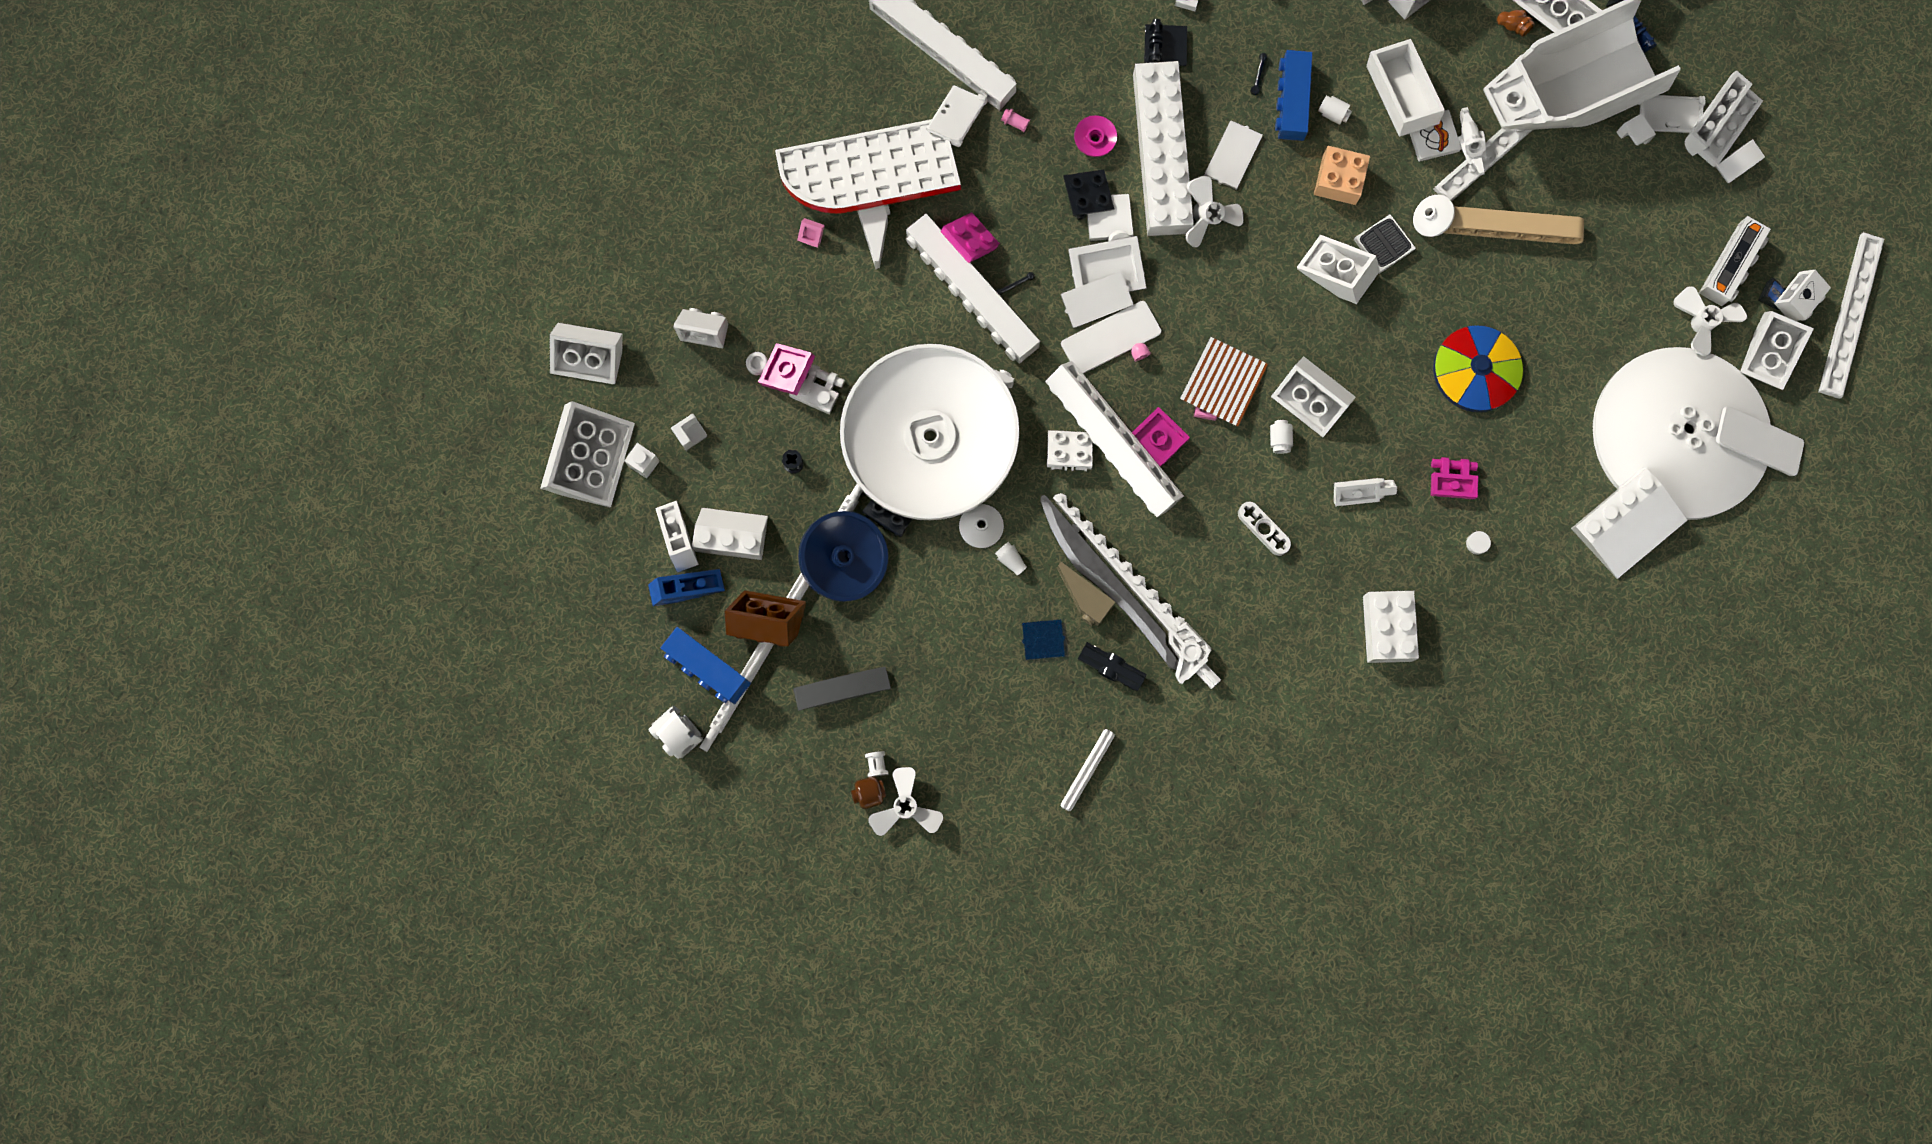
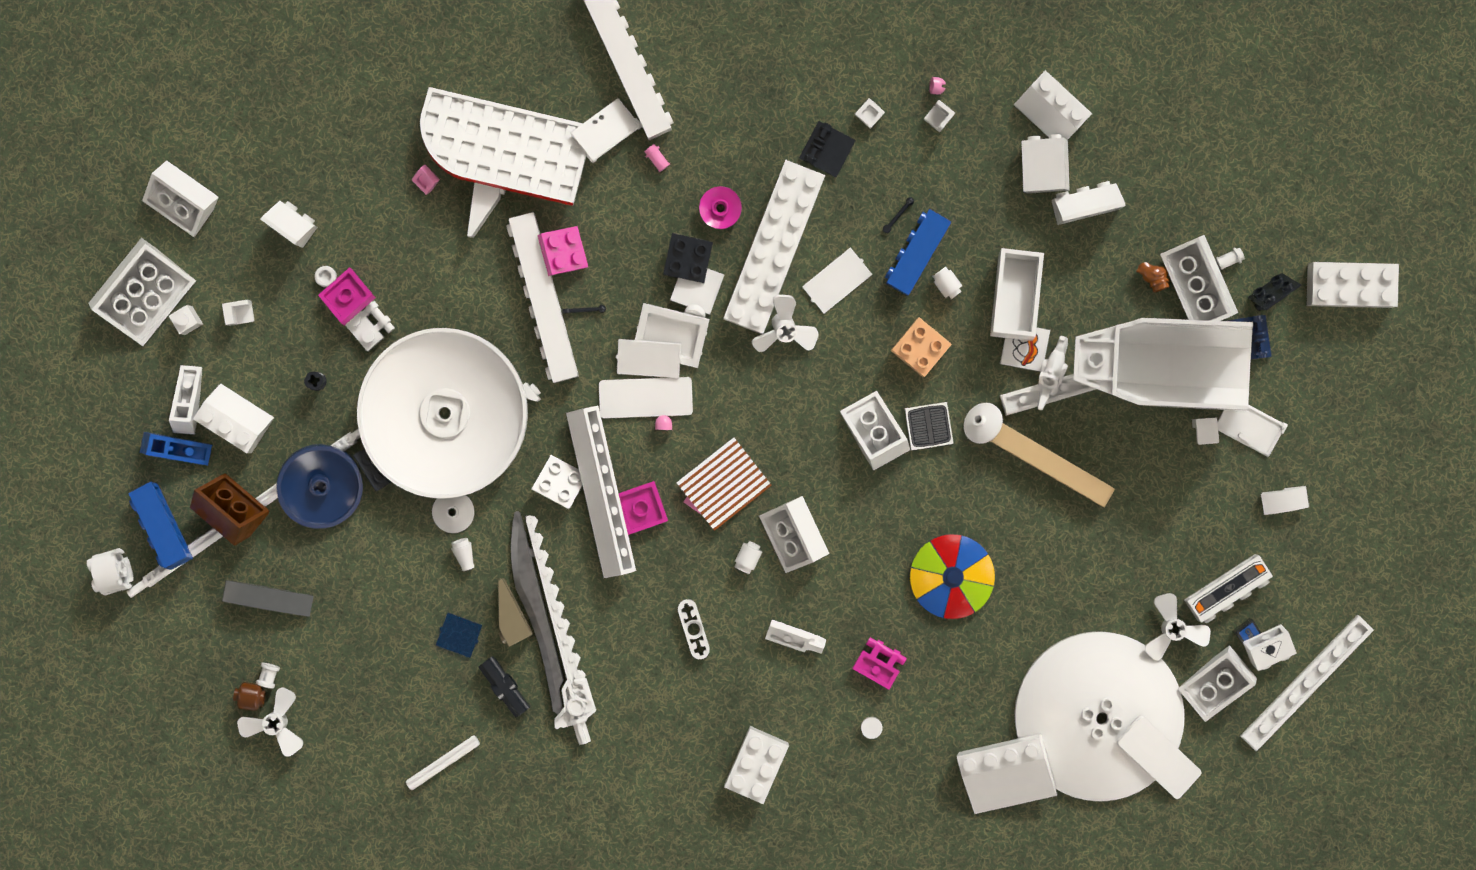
camera: 30 degrees right, 10 degrees up
(1723, 120) = (1289, 457): white brick -> none

